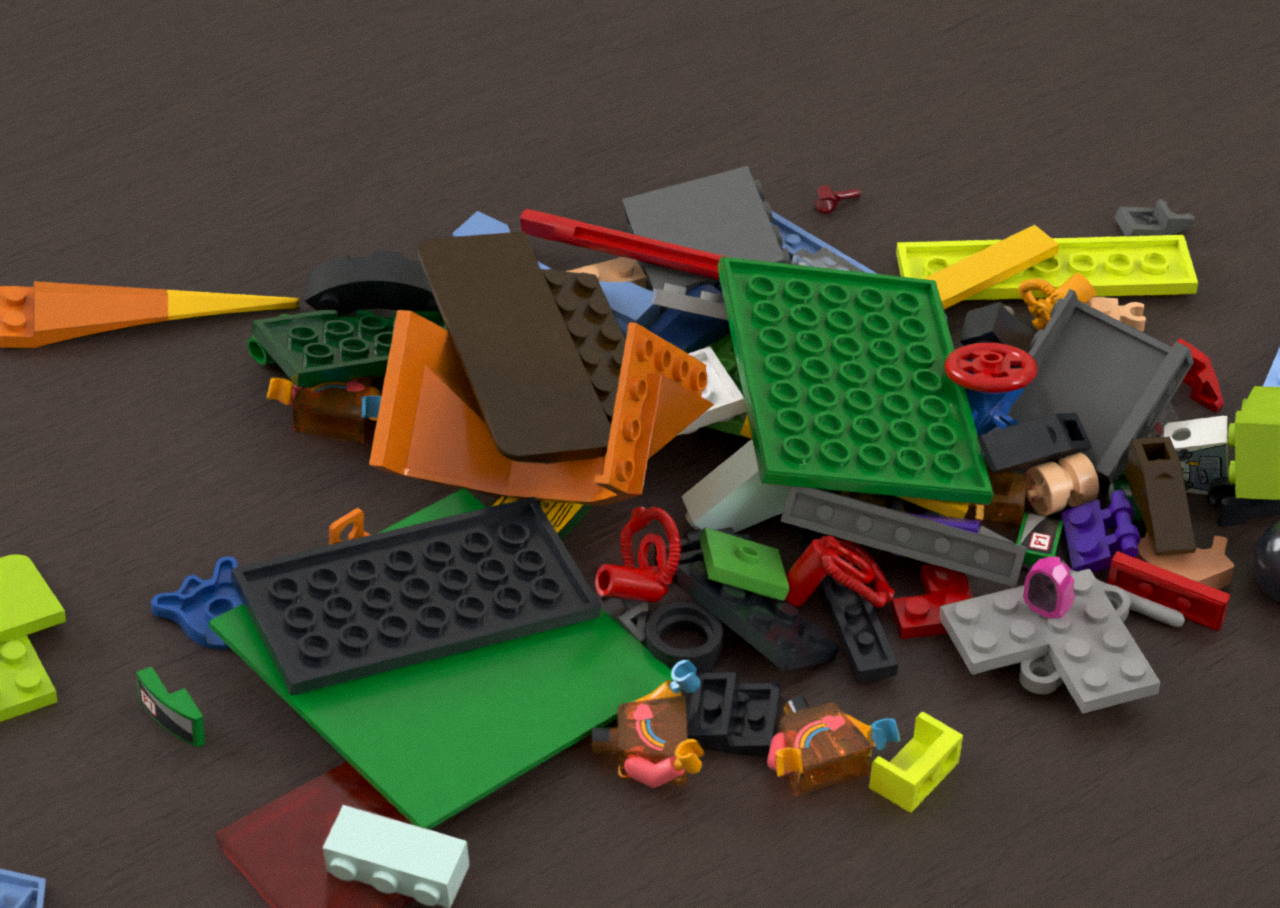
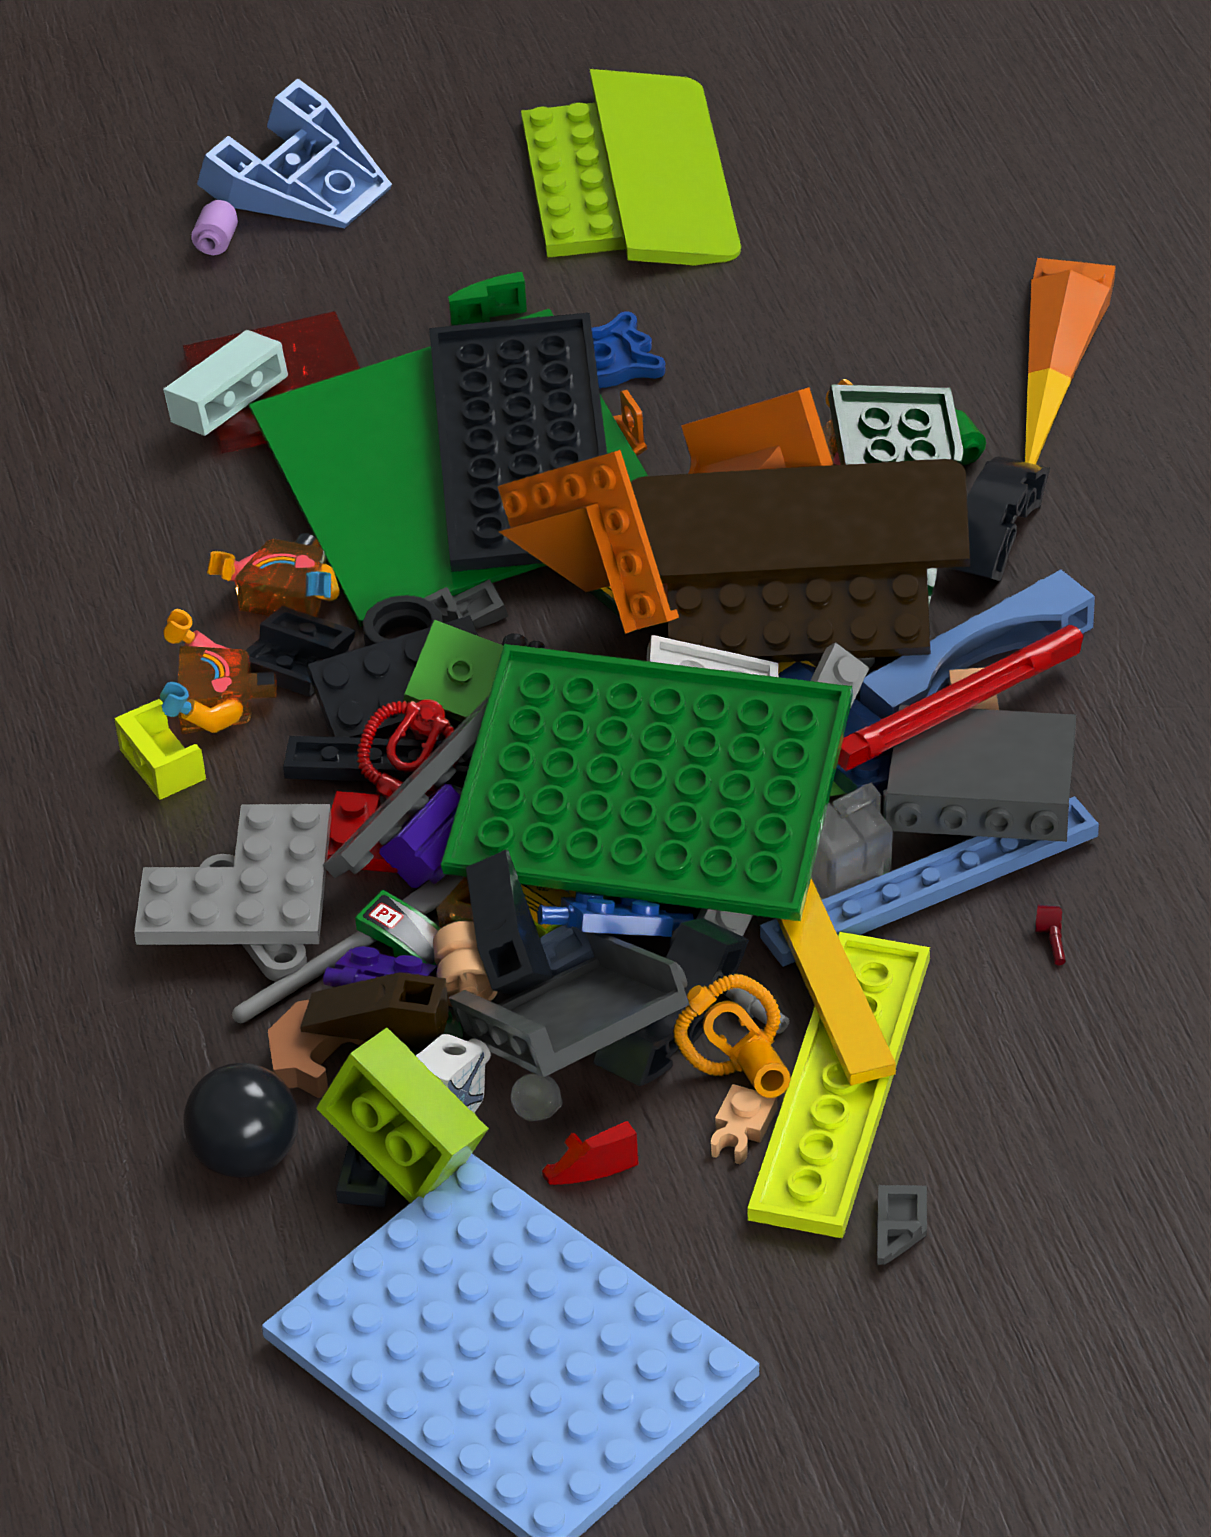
camera: 115 degrees right, 0 degrees up
(648, 581) = (472, 599): red piece -> none
(990, 367) = (614, 896): red plate -> none
(1049, 588) = (275, 853): dark pink rock -> none
(1191, 598) = (251, 1020): red tile -> none

